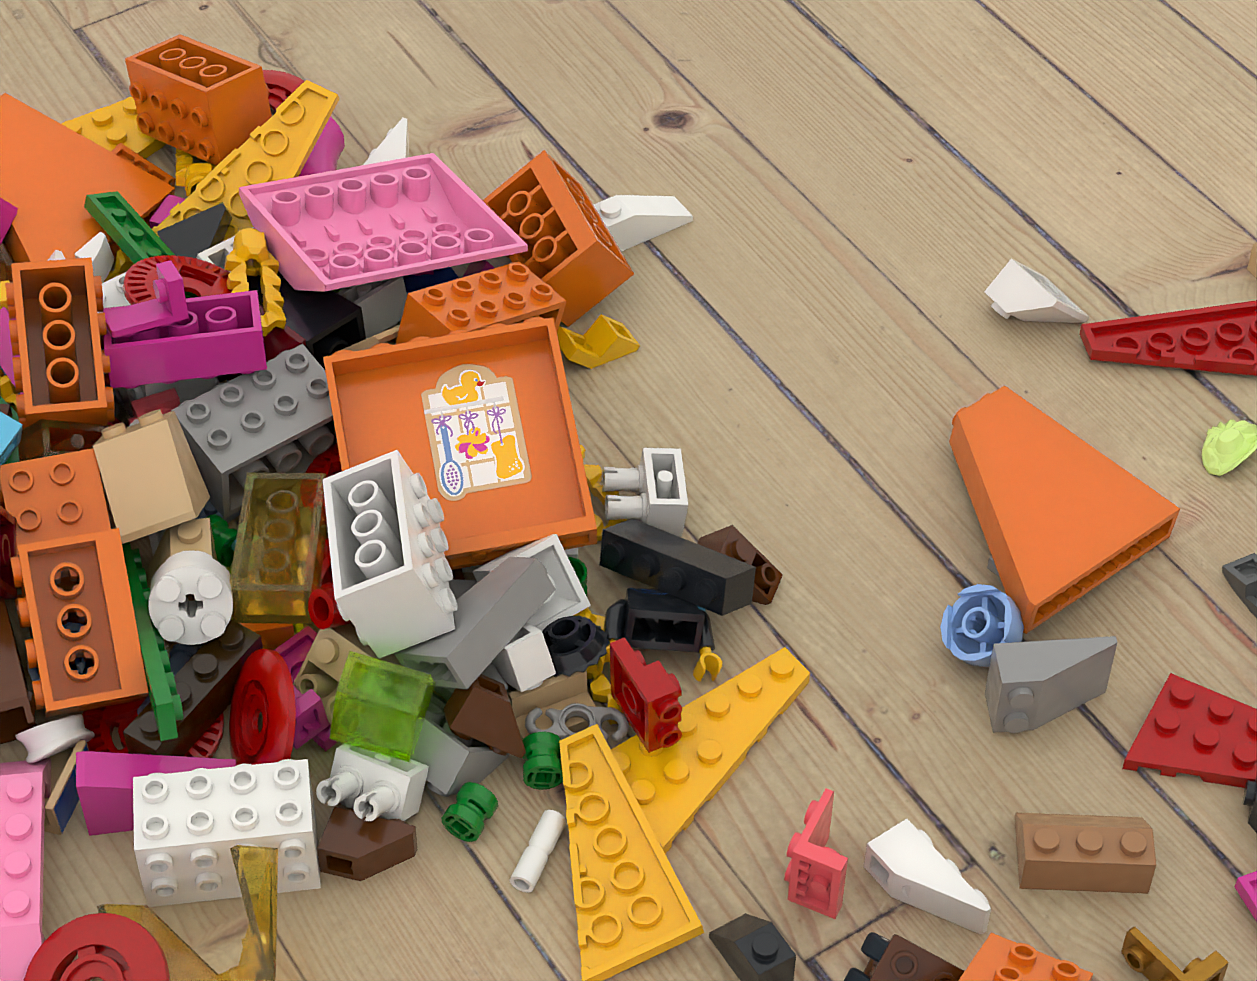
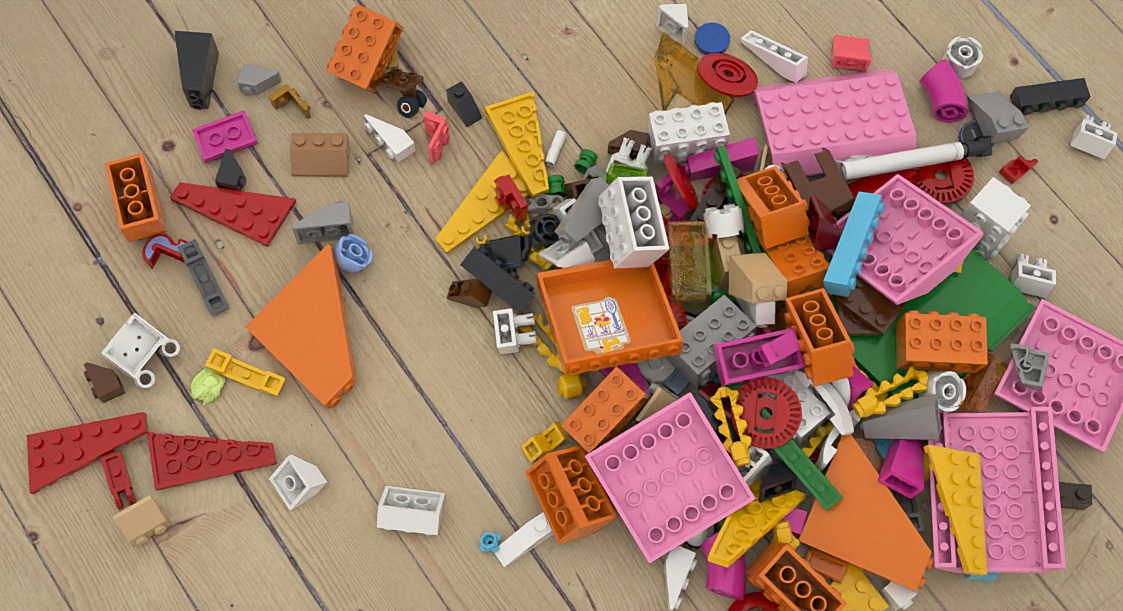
camera: 175 degrees right, 20 degrees up
(700, 213) = (486, 538): none -> medium azure plate
(833, 260) = (410, 510): none -> white slope
(1161, 460) = (244, 374): none -> yellow slope

